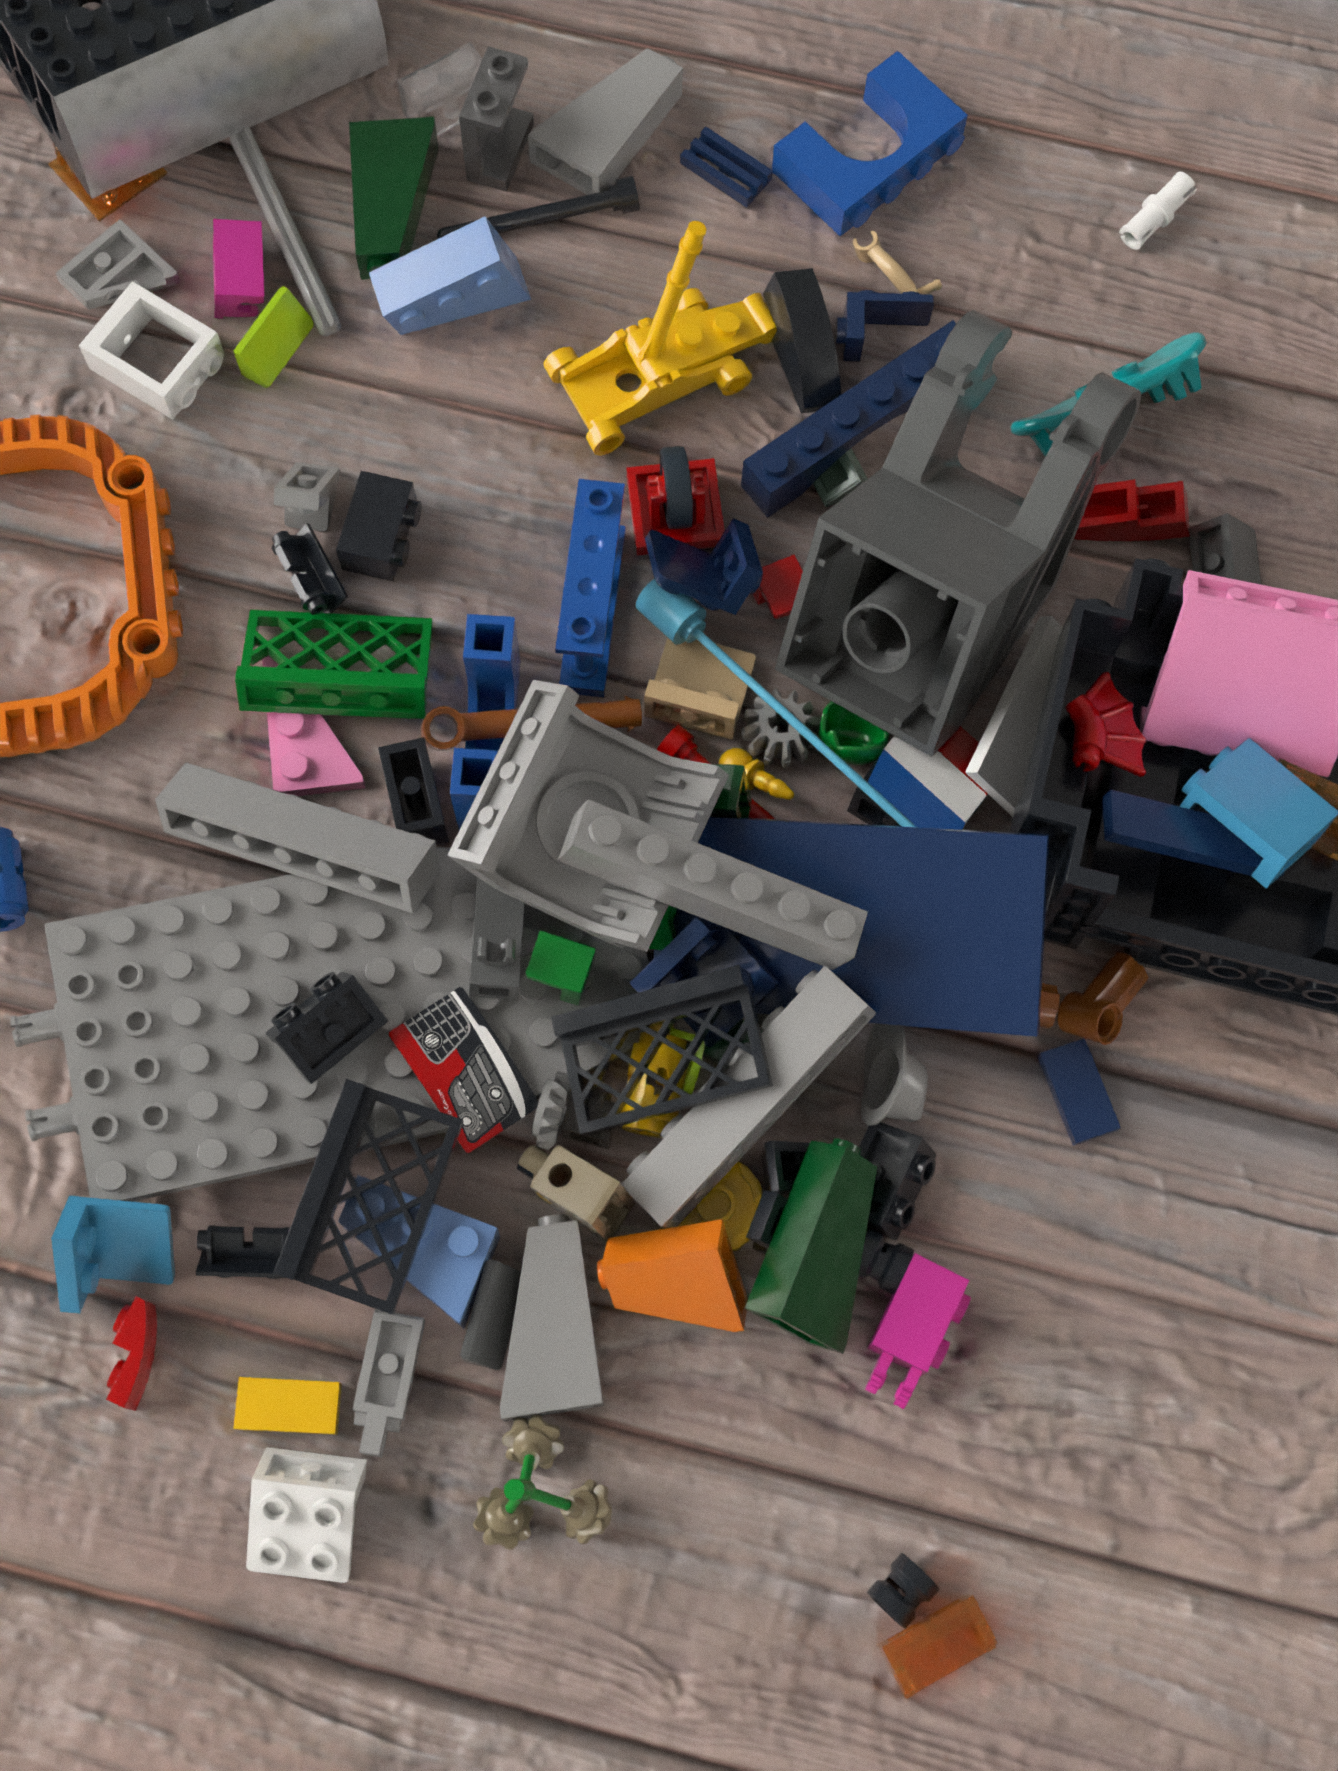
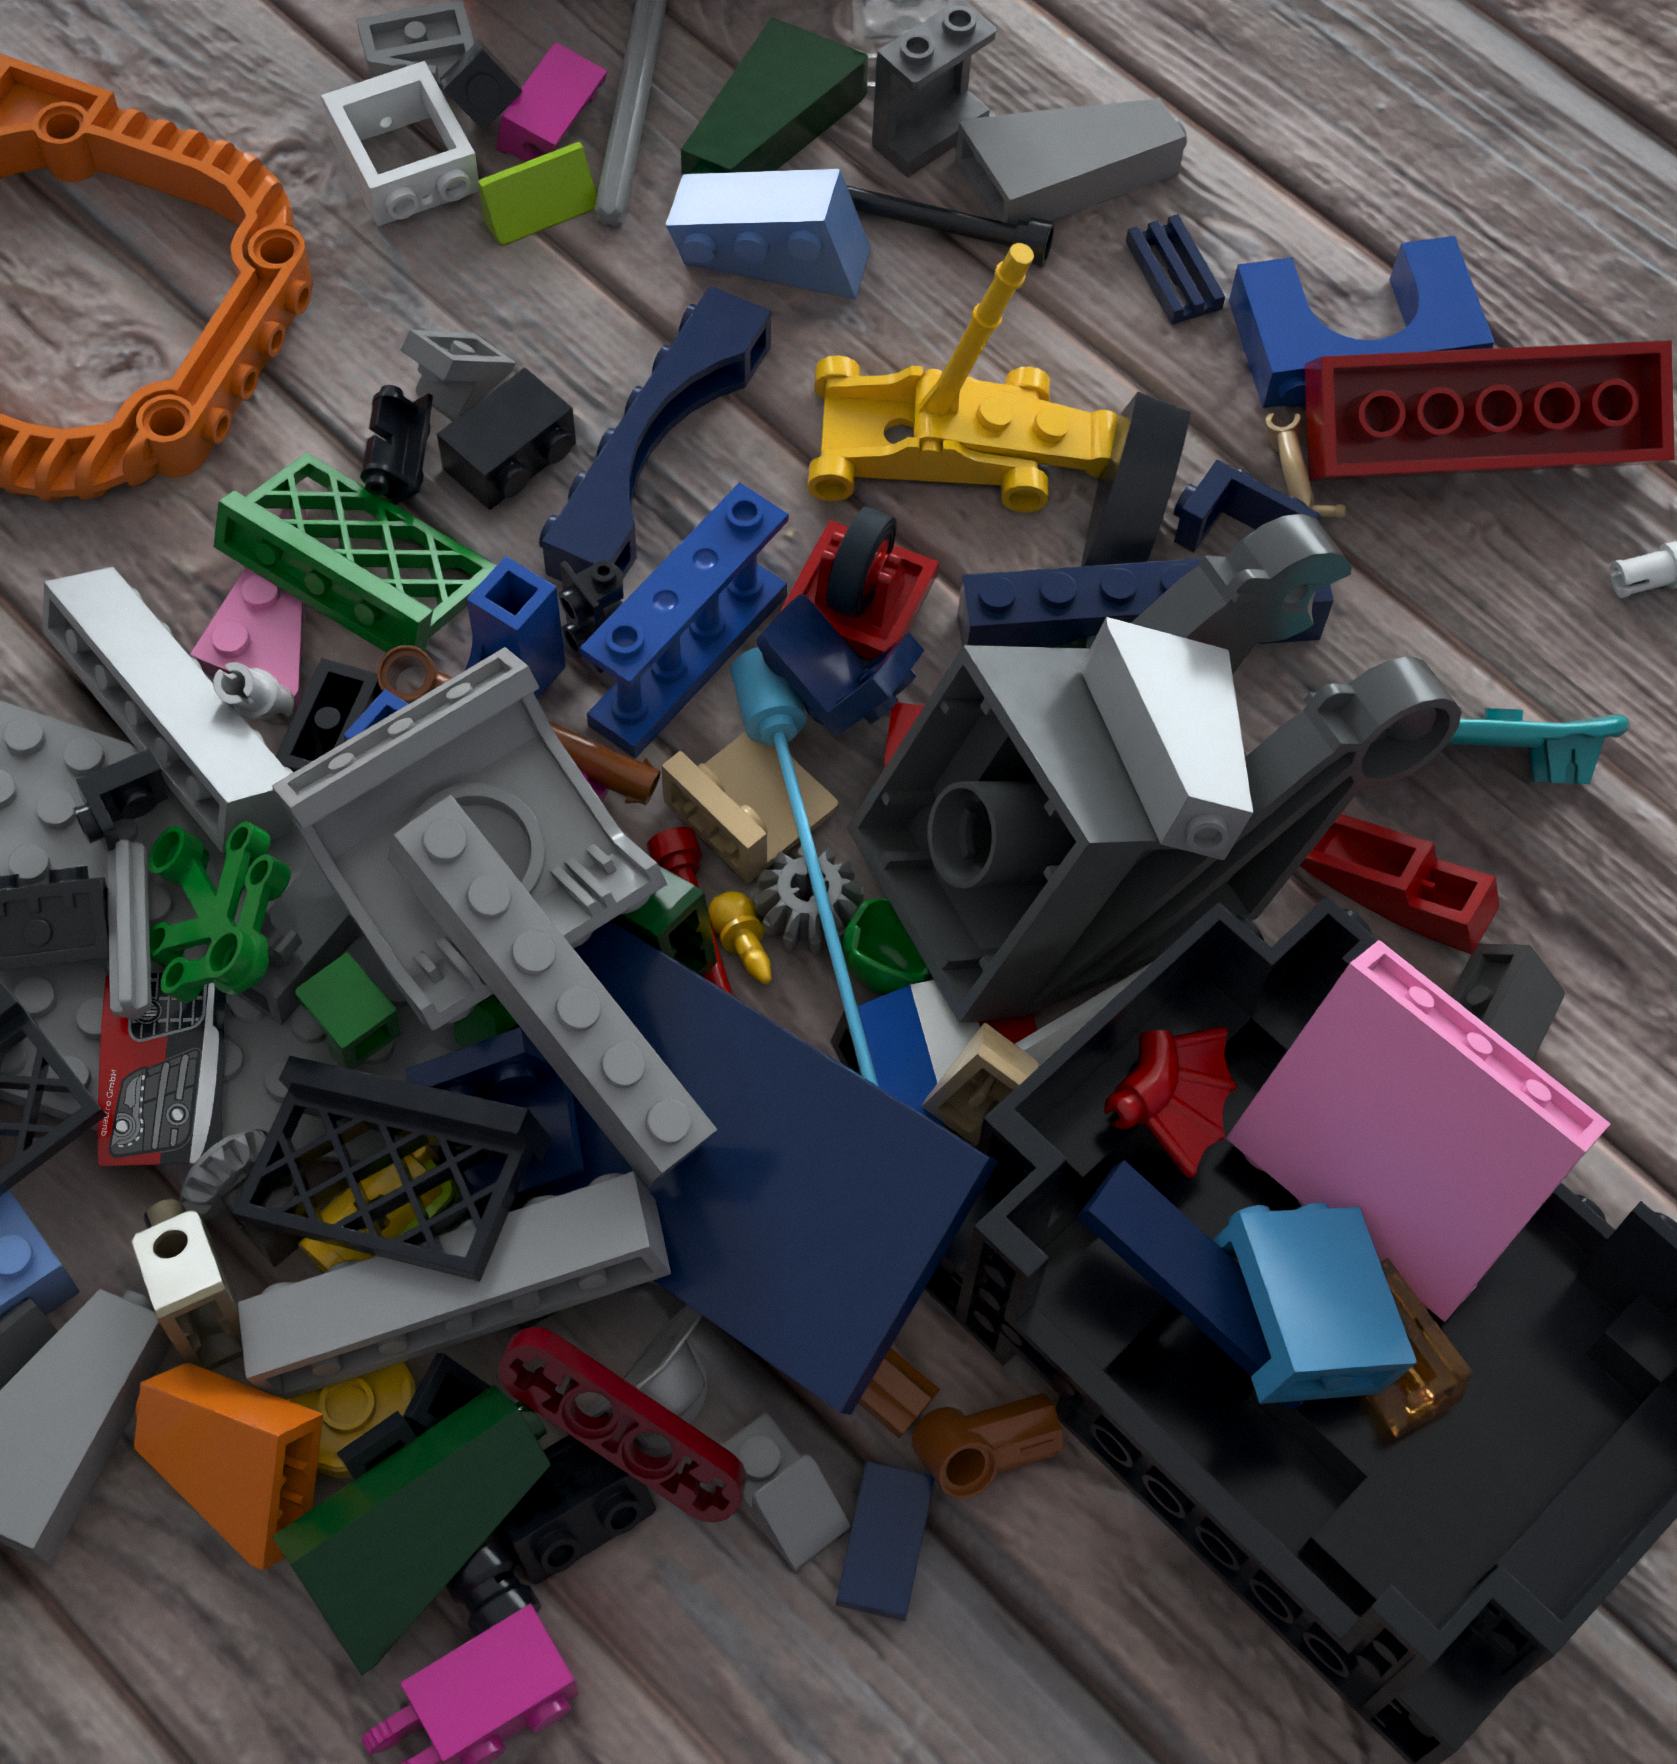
camera: 30 degrees right, 10 degrees down
(183, 278) = (481, 85): none -> black brick
(319, 909) = (118, 792): none -> black bracket
(340, 803) = (253, 693): none -> white pin
(388, 996) = (129, 930): none -> light grey axle
(482, 552) = (711, 356): none -> dark blue arch
(489, 973) = (236, 952): none -> green plant
(525, 607) = (589, 600): none -> black hinge
(902, 1125) = (615, 1434): none -> dark red beam
(979, 501) = (1175, 731): none -> light grey slope
(982, 787) = (978, 1082): none -> tan slope
(994, 167) = (1489, 410): none -> red brick
(1000, 1099) = (787, 1493): none -> light grey slope

